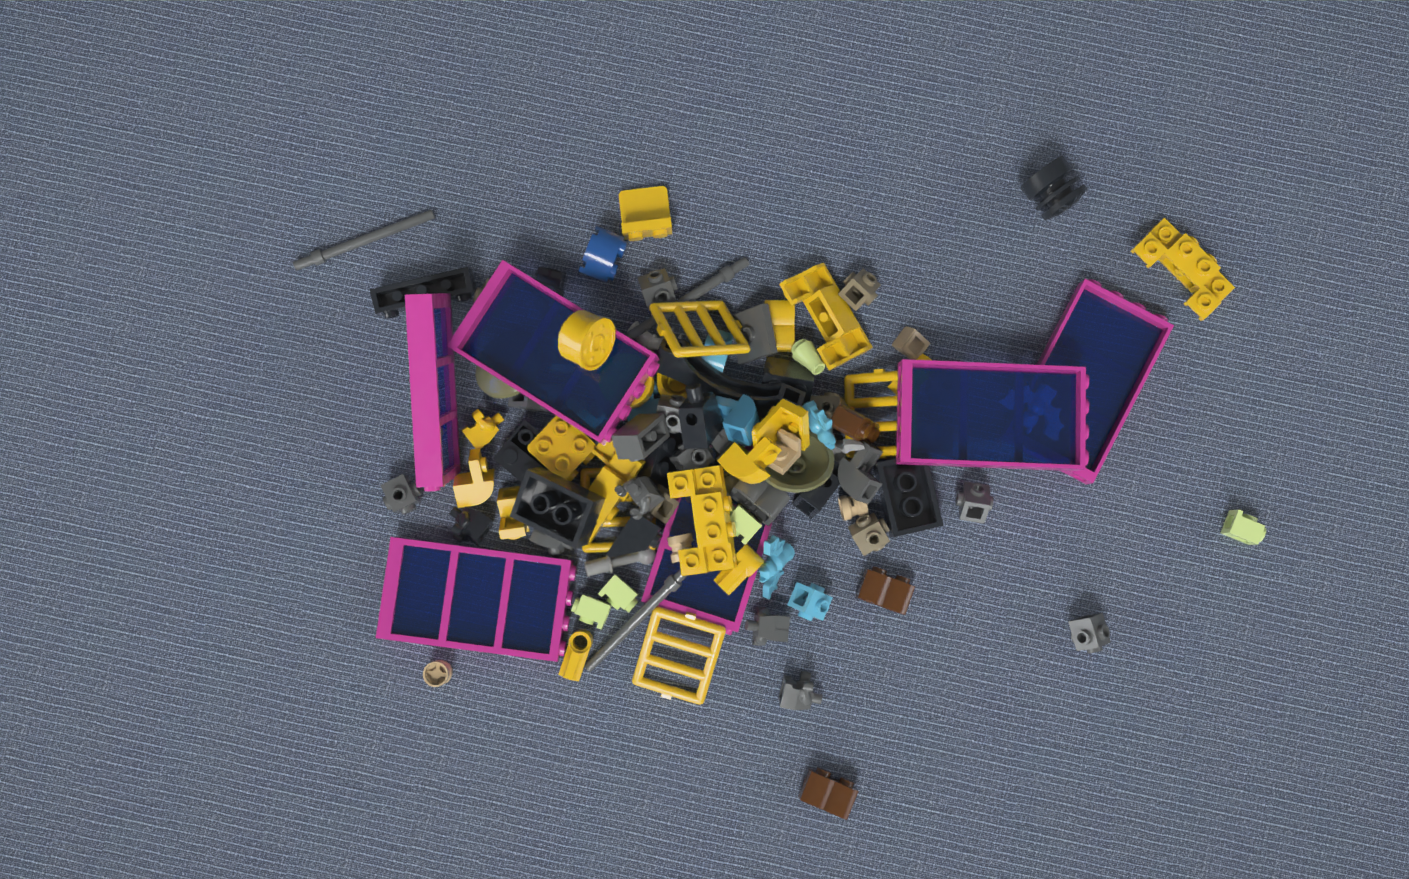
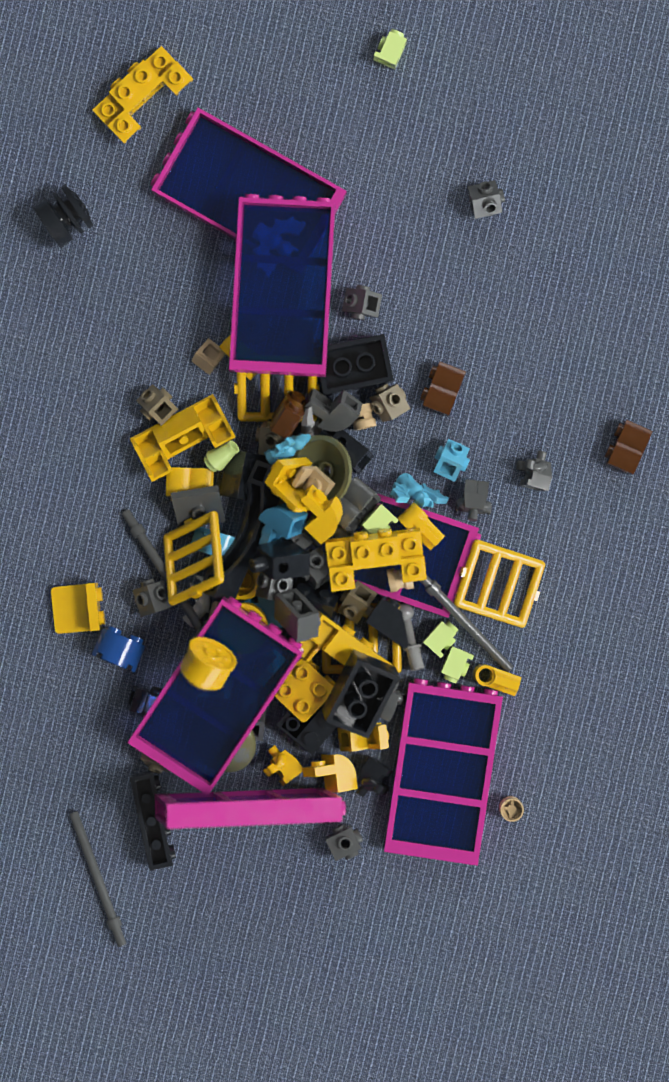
camera: 90 degrees left, 5 degrees up
(644, 494) = (349, 613): dark grey piece -> none

